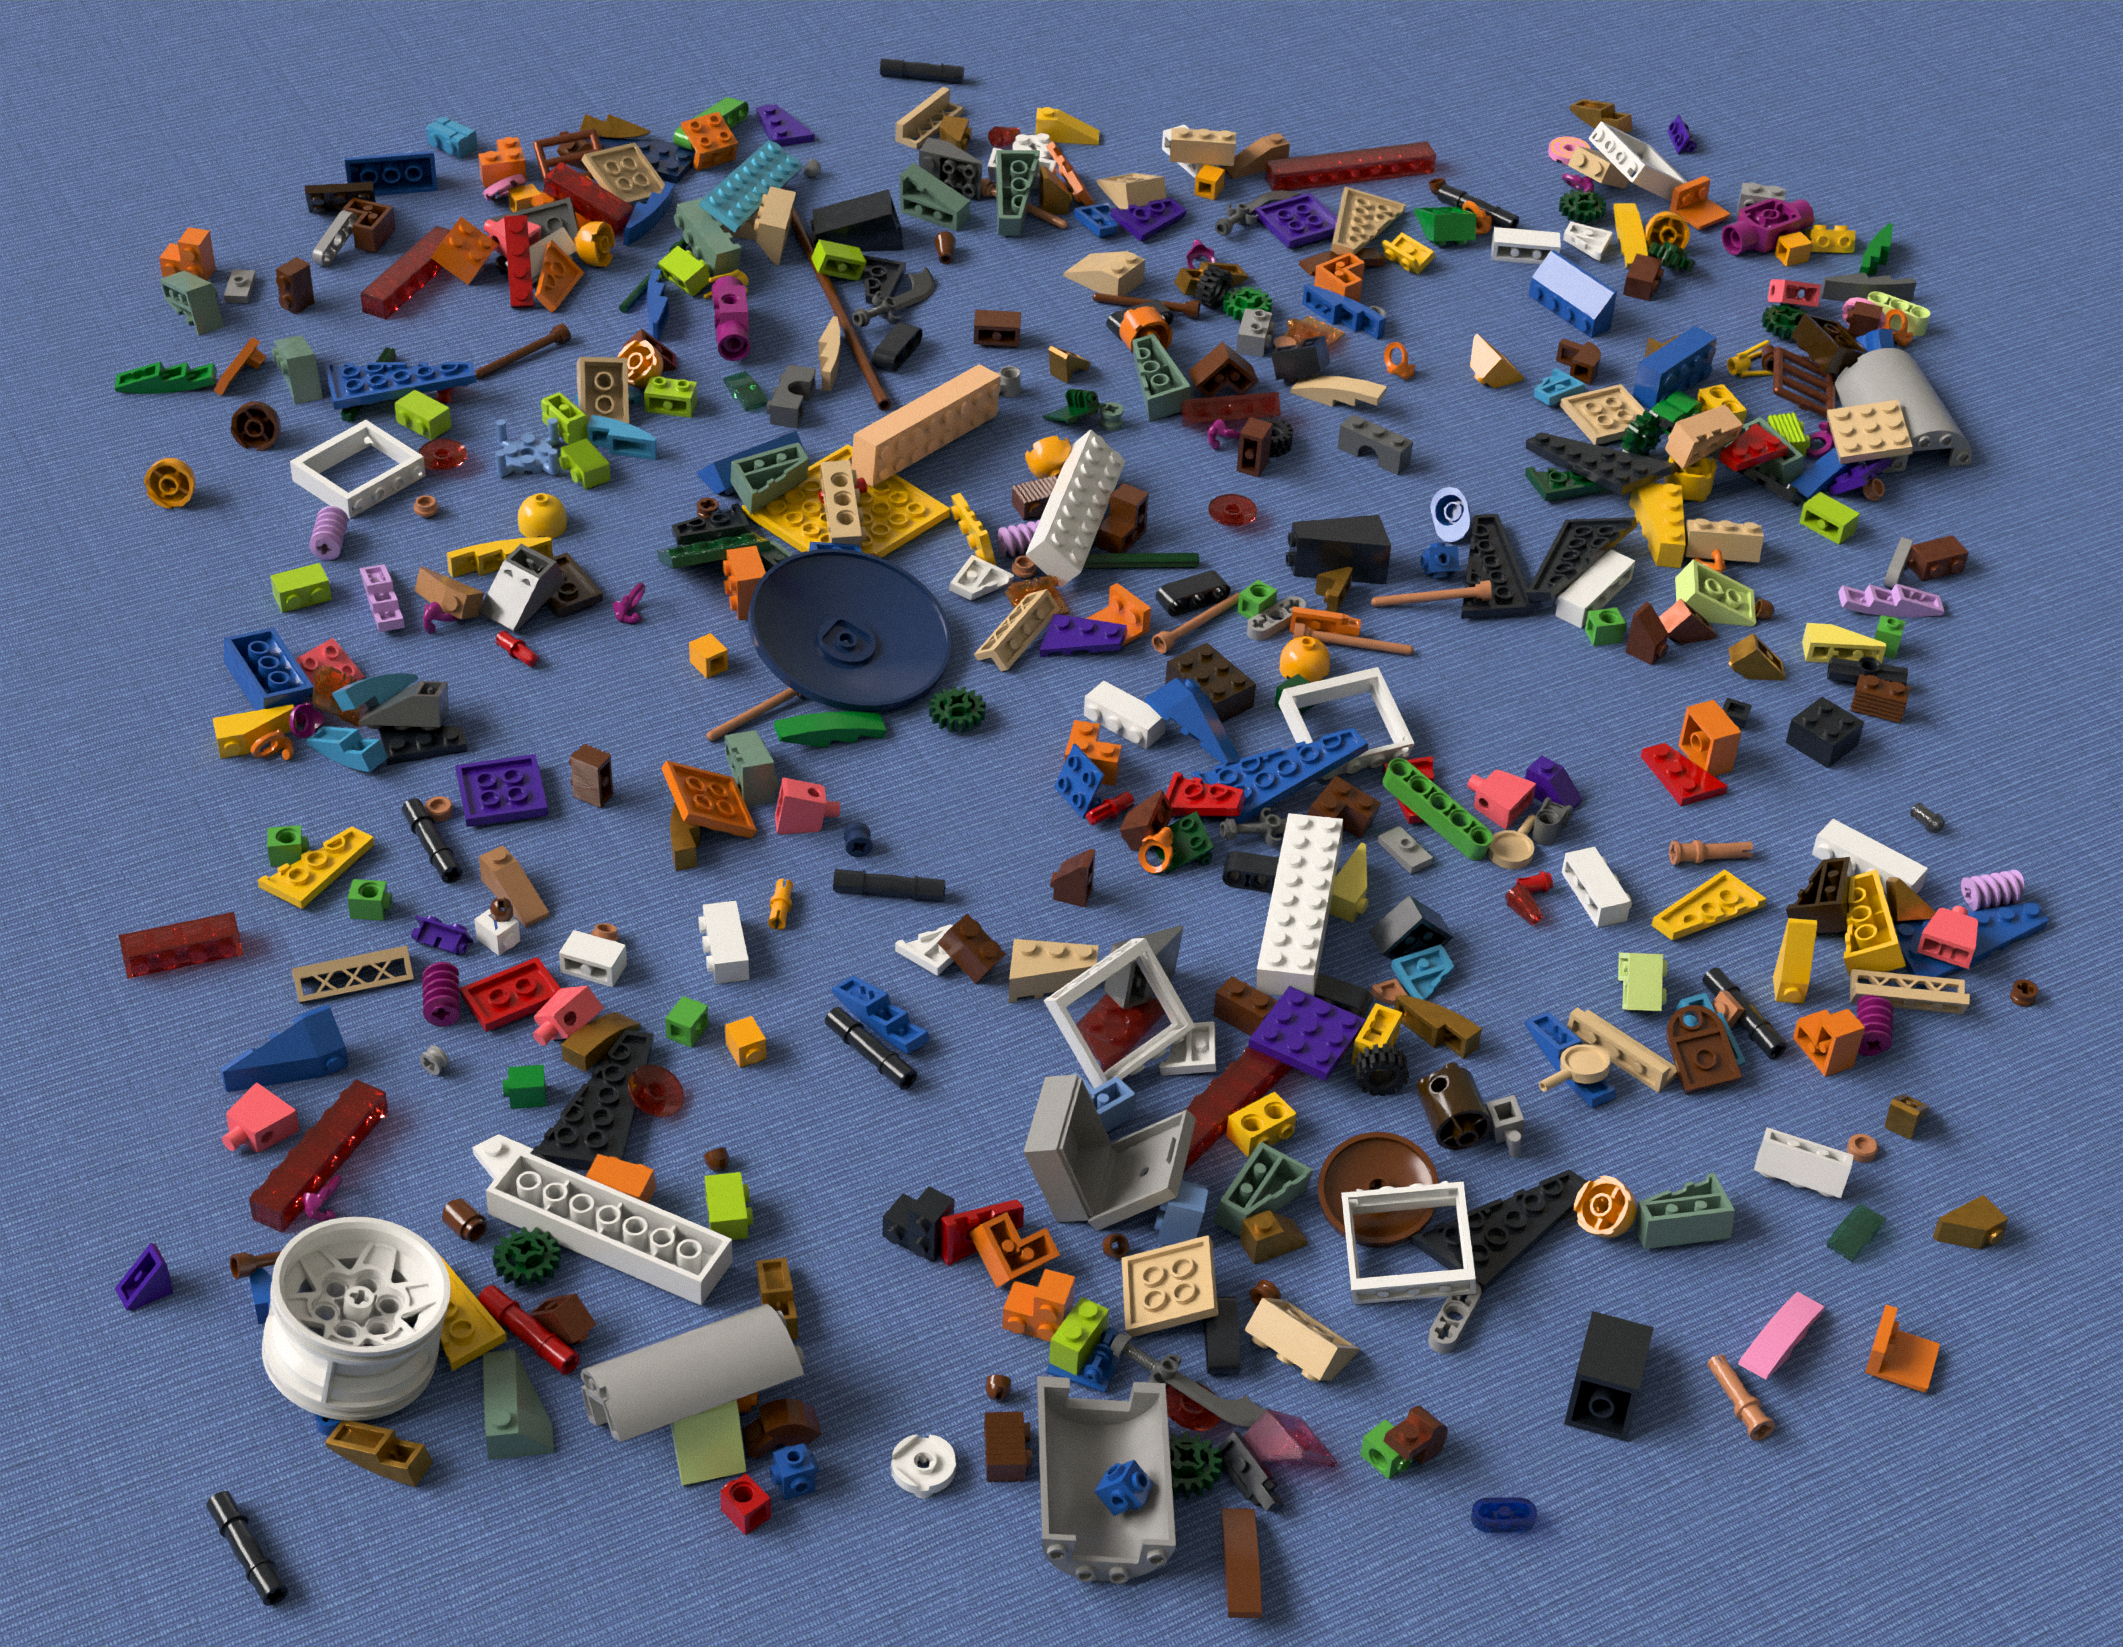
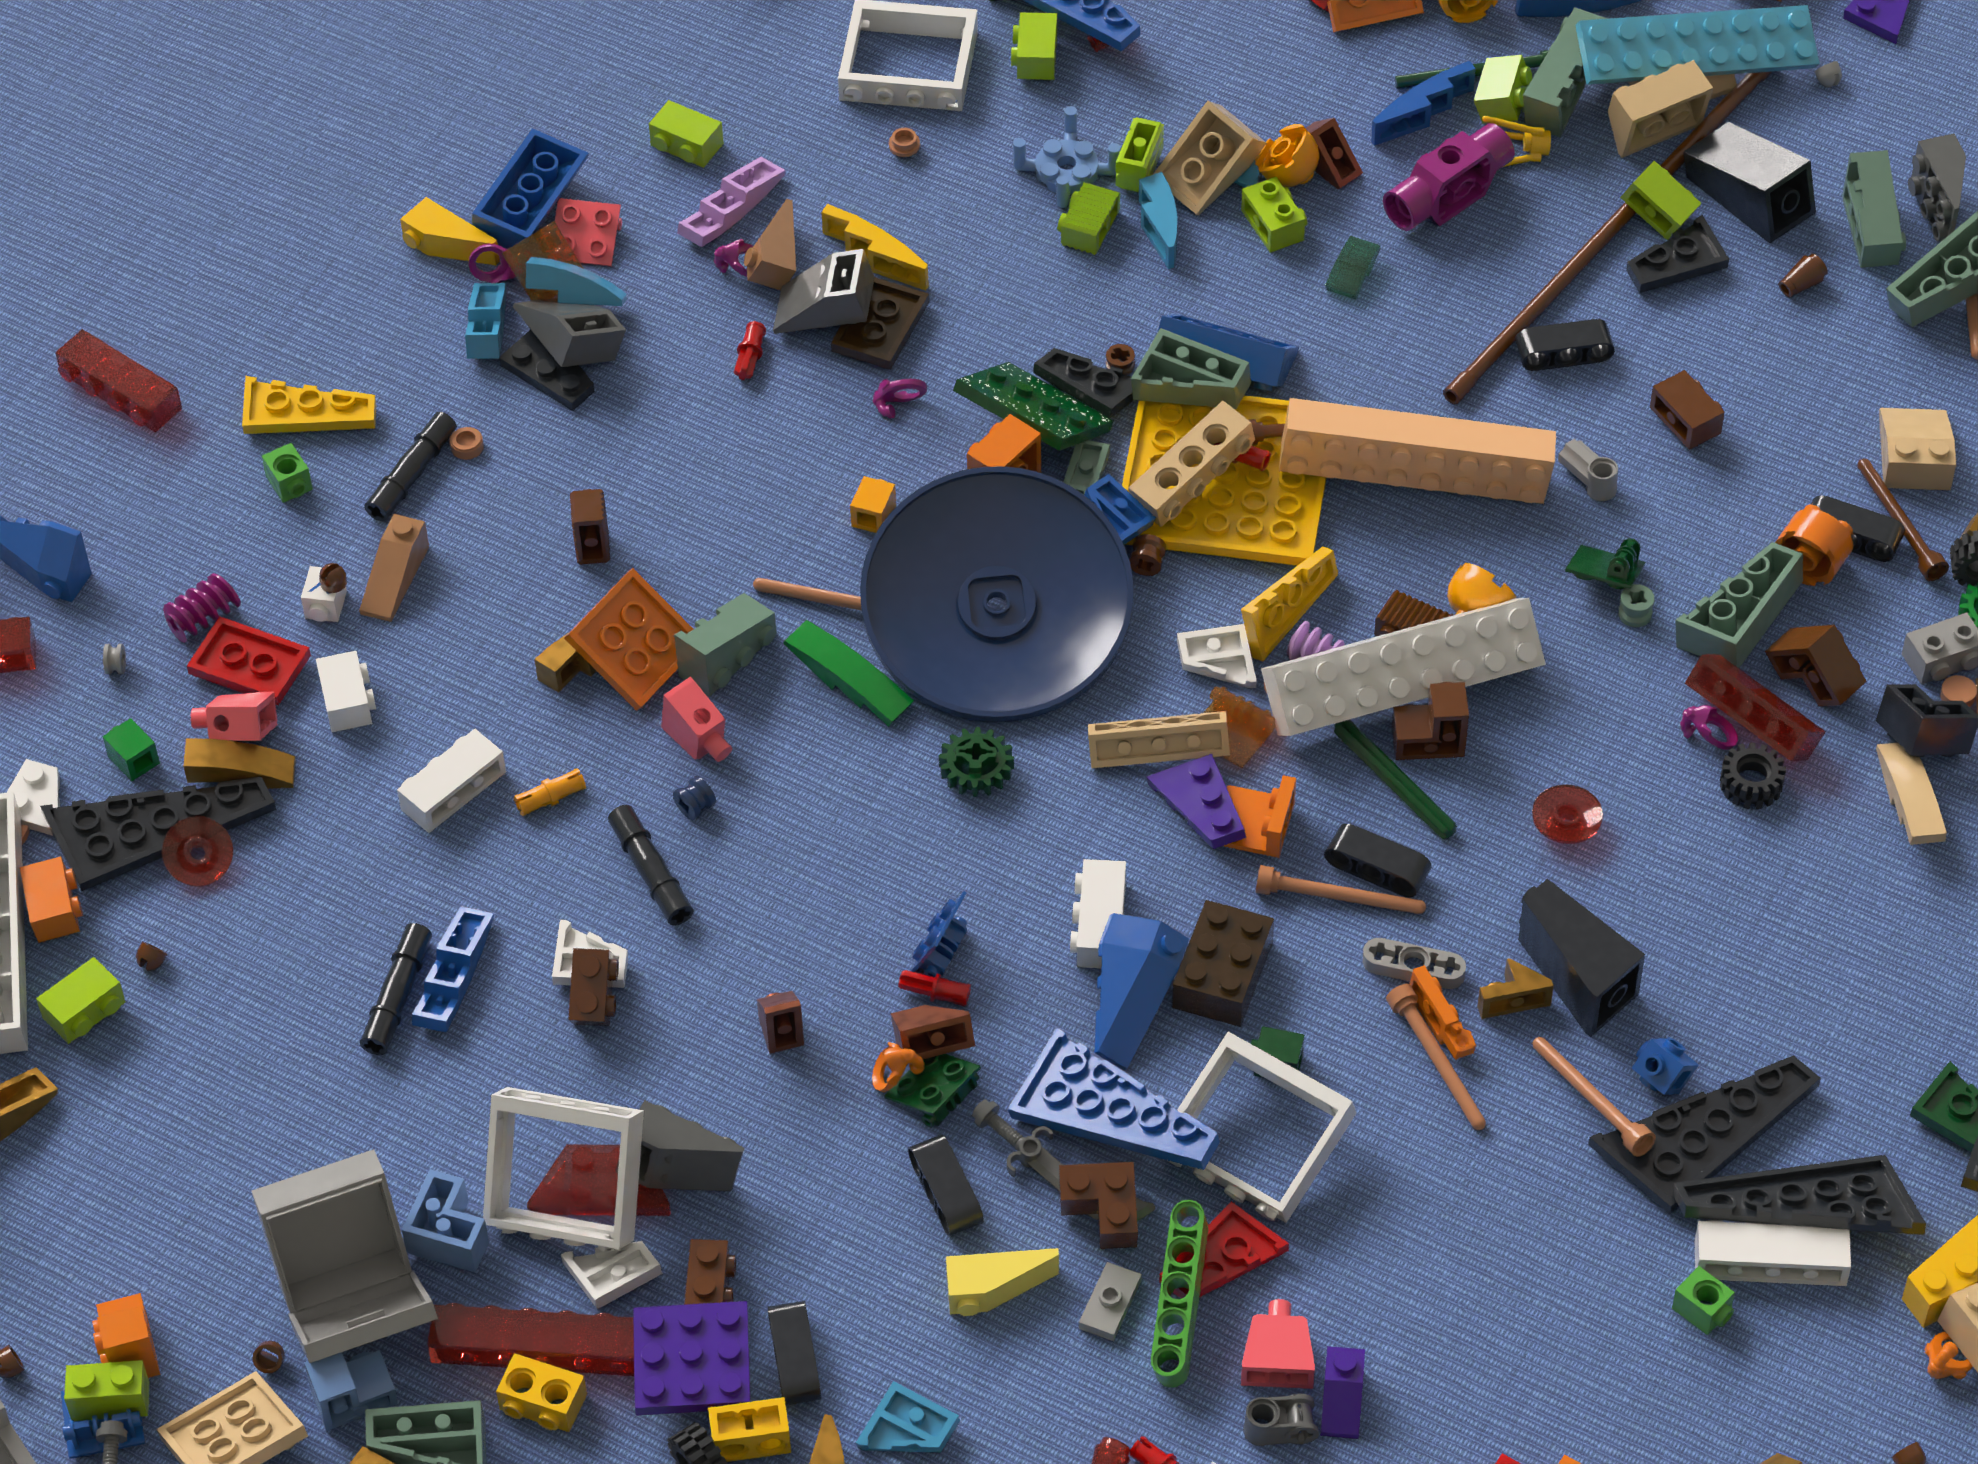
camera: 60 degrees right, 10 degrees up
(277, 742) = (447, 265): orange piece -> none
(286, 844) = (310, 364): bright green brick -> none
(328, 533) = (782, 97): lavender piece -> none
(351, 963) = (192, 517): tan fence -> none
(443, 454) = (992, 101): clear red dish -> none
(452, 936) = (287, 547): dark purple hinge -> none
(501, 790) = (527, 472): dark purple plate -> none
(542, 516) = (972, 240): yellow cylinder -> none
(559, 334) = (1288, 61): reddish brown piece -> none
(606, 931) = (387, 680): nougat plate -> none
(687, 1021) = (315, 818): bright green brick -> none
(745, 1041) = (323, 882): light orange brick -> none
(787, 403) = (1401, 300): dark grey arch -> none
(830, 354) = (1498, 293): tan slope -> none
(918, 1222) = (168, 1172): black brick -> none
(922, 288) = (1708, 302): dark grey sword -> none
(955, 1229) = (198, 1224): red wing -> none
(1009, 1255) = (172, 1268): orange brick -> none
(1047, 966) = (622, 1066): tan wedge -> none
(1064, 363) = (1694, 505): pearl gold slope -> none
(1102, 754) = (997, 916): orange brick -> none
(1208, 800) = (1014, 1058): red wing -> none
(1254, 447) = (1694, 768): copper brick -> none
(1256, 599) = (1427, 916): bright green brick -> none
(1300, 904) = (884, 1242): white brick -> none
(1305, 657) = (1355, 1032): light orange cylinder -> none
(1388, 991) = (857, 1409): nougat tile -> none
(1392, 449) = (1838, 889): dark grey arch -> none
(1409, 926) = (956, 1372): black brick -> none
(1450, 514) = (1771, 1032): piece -> none
(1513, 848) = (1205, 1406): tan piece -> none
(1647, 635) = (1714, 1351): copper slope -> none
(1686, 624) = (1791, 1387): copper slope -> none
(1715, 595) = (1878, 1393): yellowish green slope -> none

